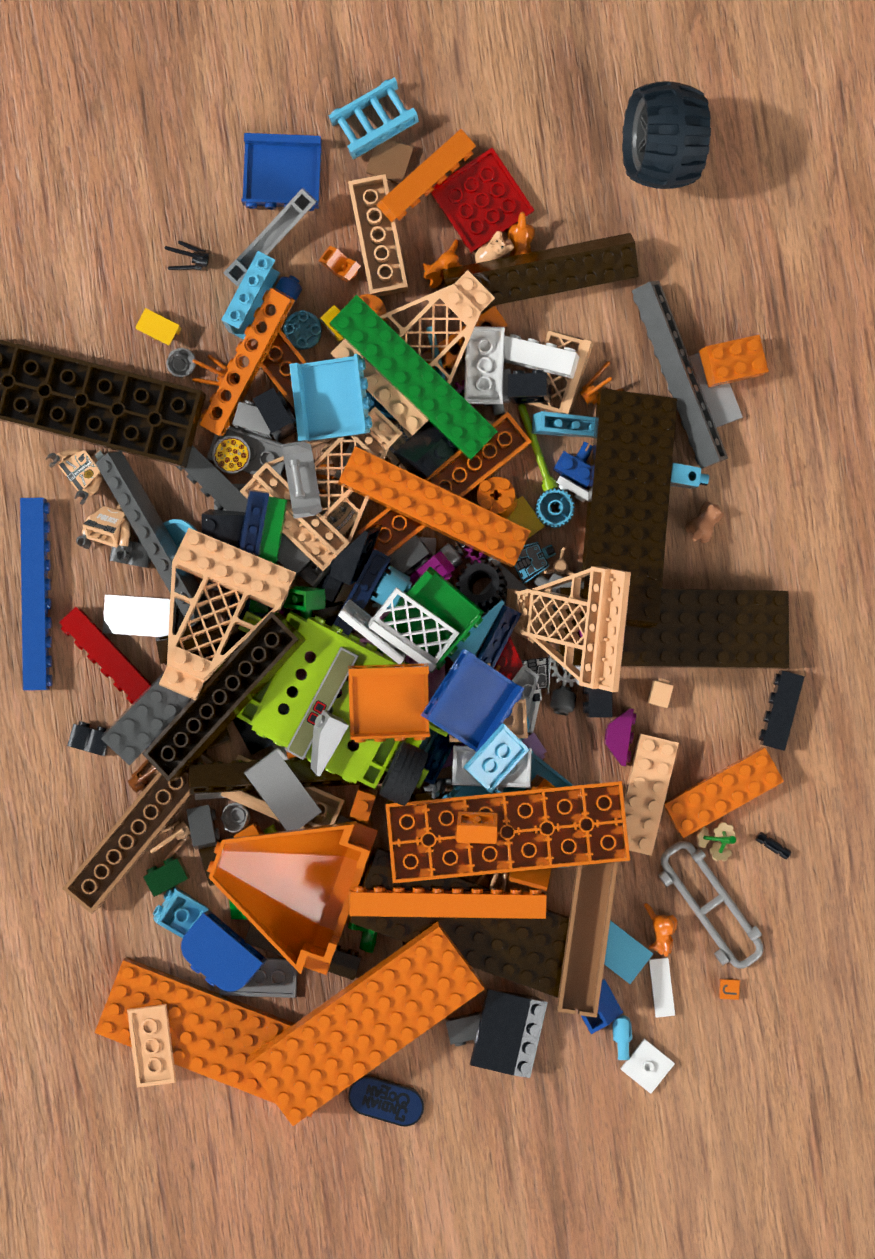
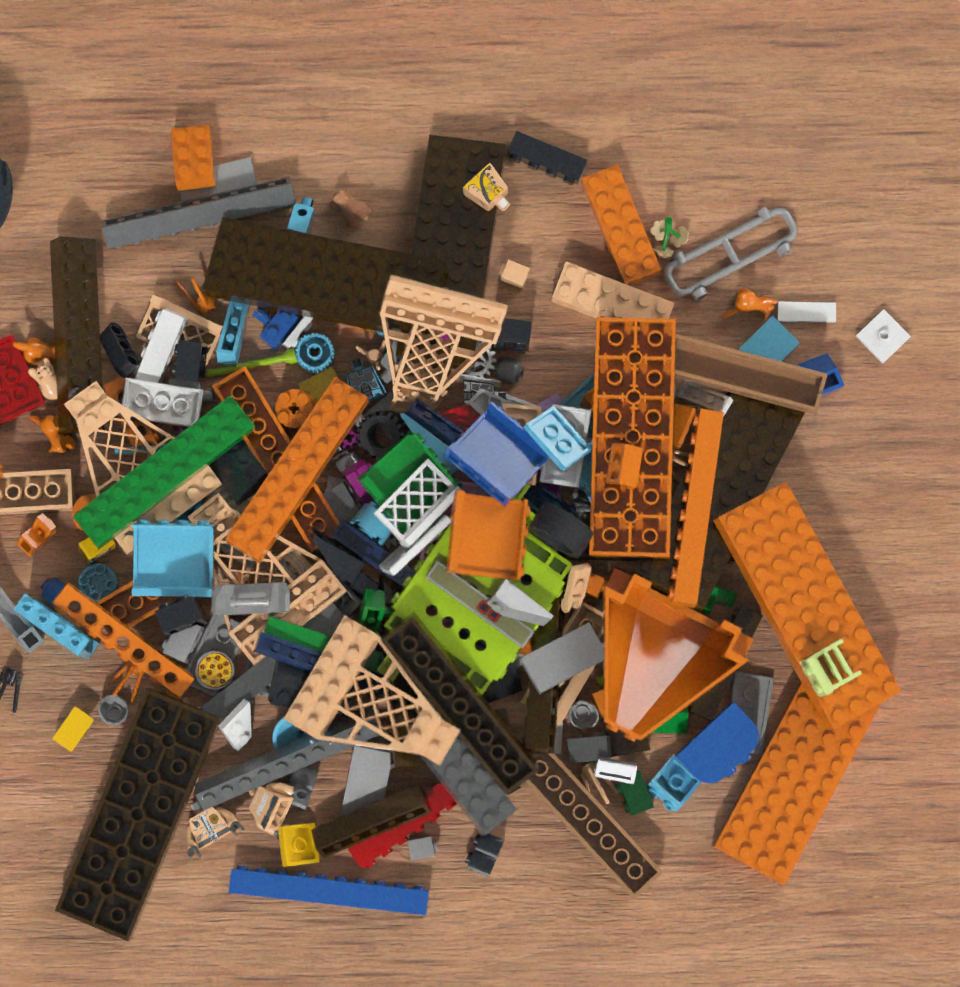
camera: 80 degrees left, 5 degrees down
(74, 558) = (297, 845): none -> yellow plate
(87, 678) = (422, 848): none -> light grey brick
(105, 625) = (371, 821): none -> dark brown brick
(138, 780) = (534, 809): dark orange plant -> none
(151, 1045) = (804, 827): light nougat tile -> none
(180, 484) = (238, 725): none -> white wing
(183, 855) = (616, 770): none -> tile
(294, 1043) = (817, 675): none -> yellowish green plate
(354, 794) = (576, 587): none -> light nougat hinge
(386, 1101) = (888, 600): tile -> none
(463, 1028) = (824, 509): dark grey brick -> none
(508, 1033) = (833, 467): black slope -> none
(531, 316) = (119, 350): none -> black beam
(560, 897) = (704, 397): none -> white tile
(619, 735) = (551, 319): magenta slope -> none
(622, 1036) = (850, 356): medium azure arm -> none
(729, 989) = (816, 246): orange tile -> none
(738, 656) = (487, 189): none -> torso
(773, 845) = (680, 184): black axle -> none

